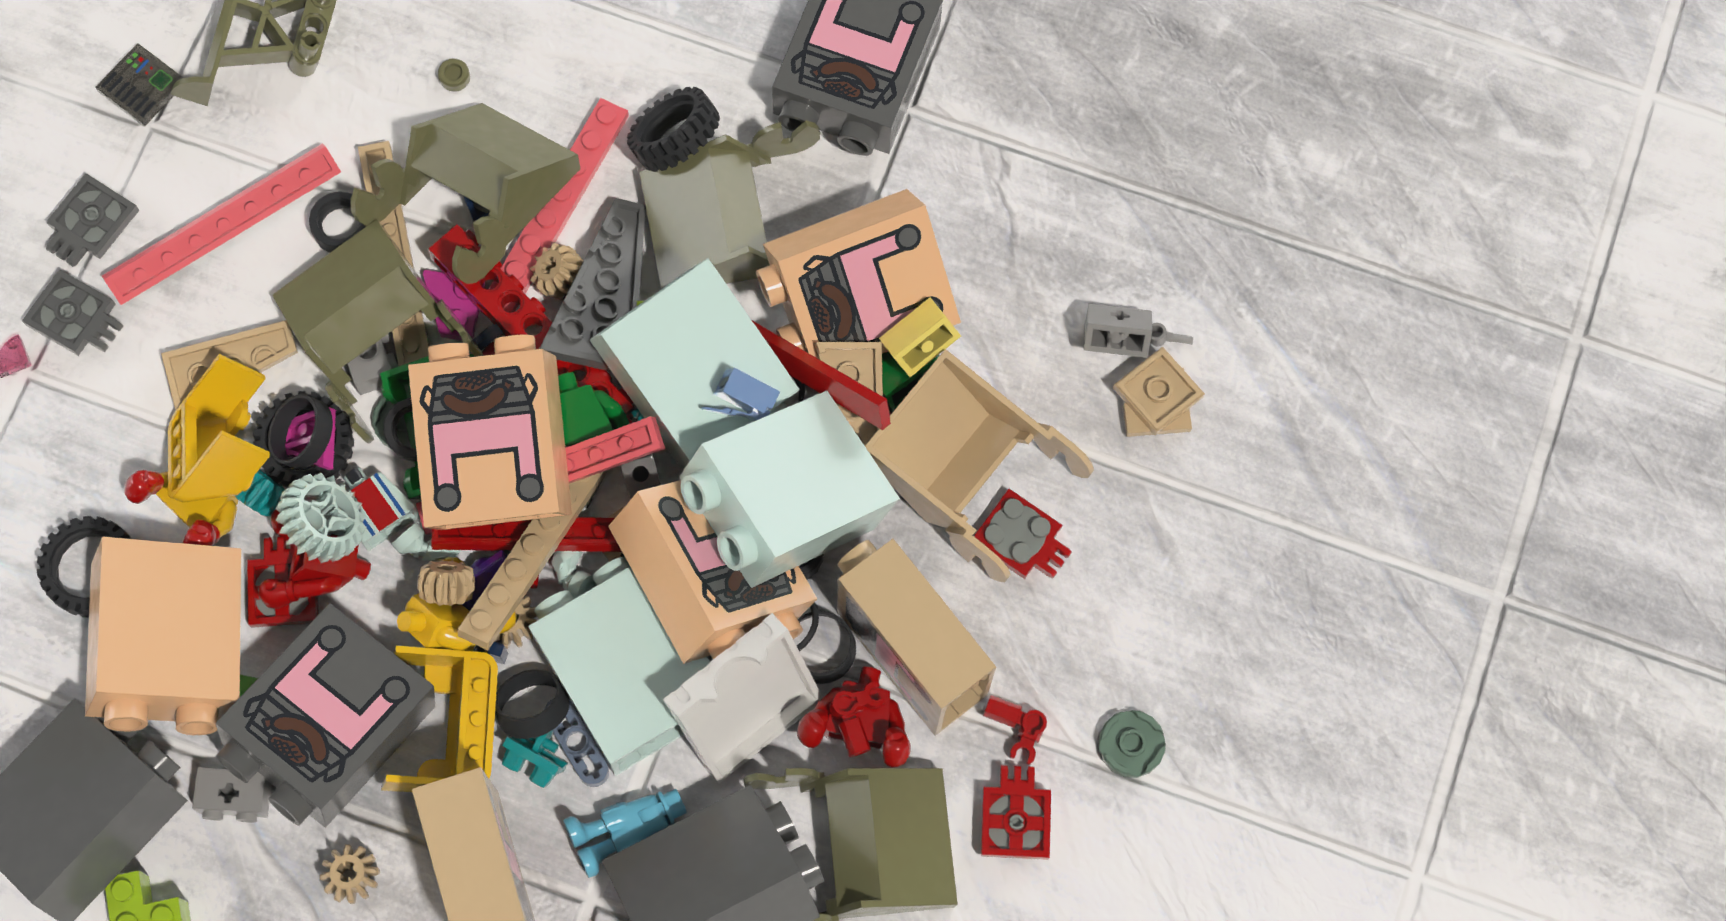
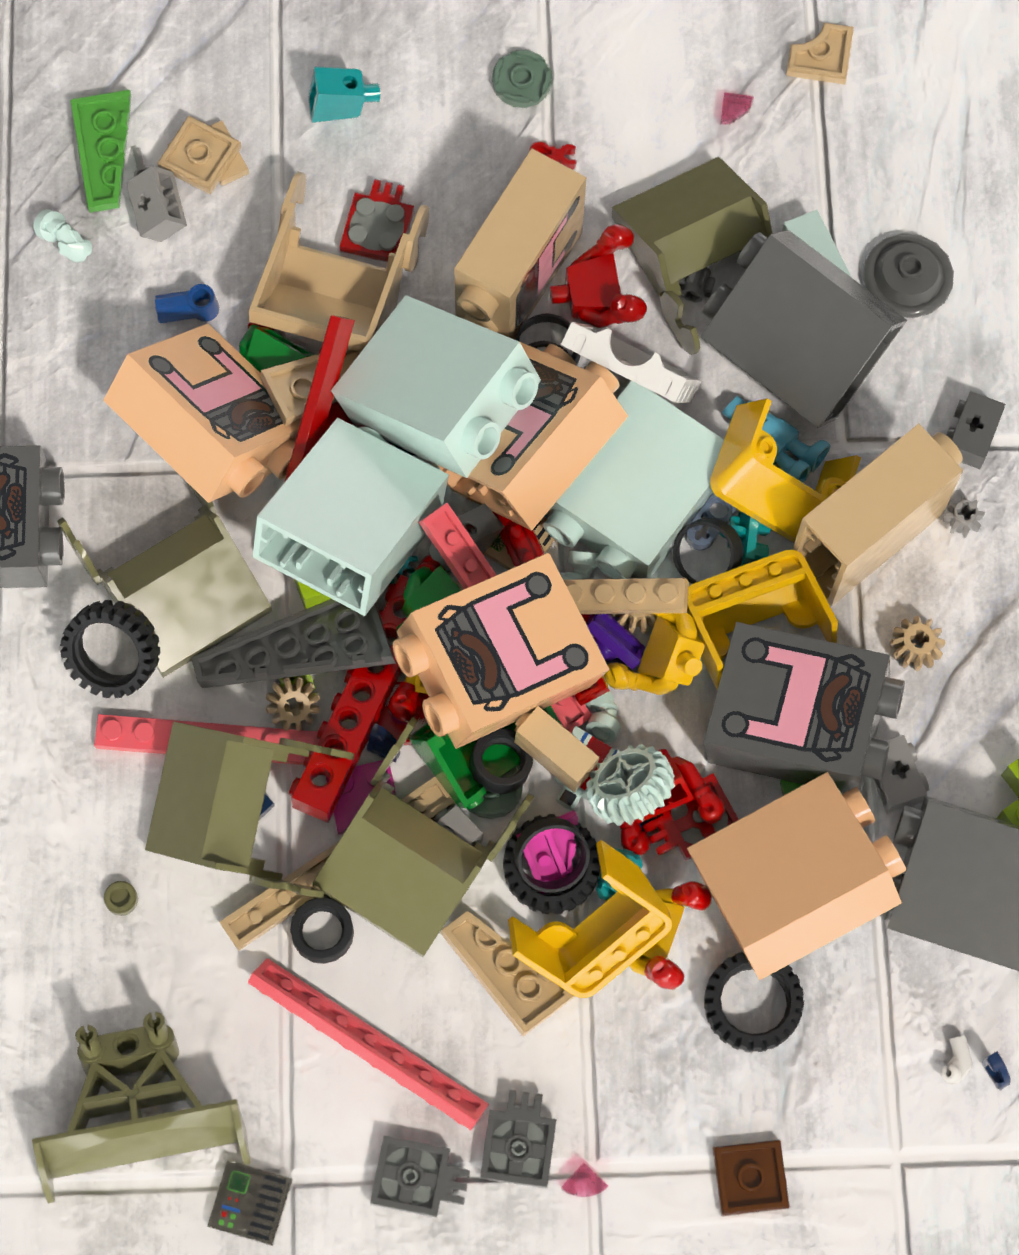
camera: 110 degrees left, 0 degrees up
(381, 466) = (555, 748): none -> tan brick
(446, 582) = (639, 654): tan gear -> none
(575, 756) = (758, 488): none -> yellow windscreen
(745, 393) = (368, 443): medium blue piece -> none
(818, 820) = (697, 285): none -> dark grey gear
(844, 707) = (598, 289): red bar -> none
(920, 337) = (243, 339): light yellow brick -> none
(1001, 323) = (184, 306): none -> blue piece
(1016, 818) = (624, 141): red piece -> none
(1132, 231) = (53, 227): none -> light aqua arm
(1177, 533) = (339, 94): none -> teal torso
(1211, 308) = (102, 139): none -> bright green wing

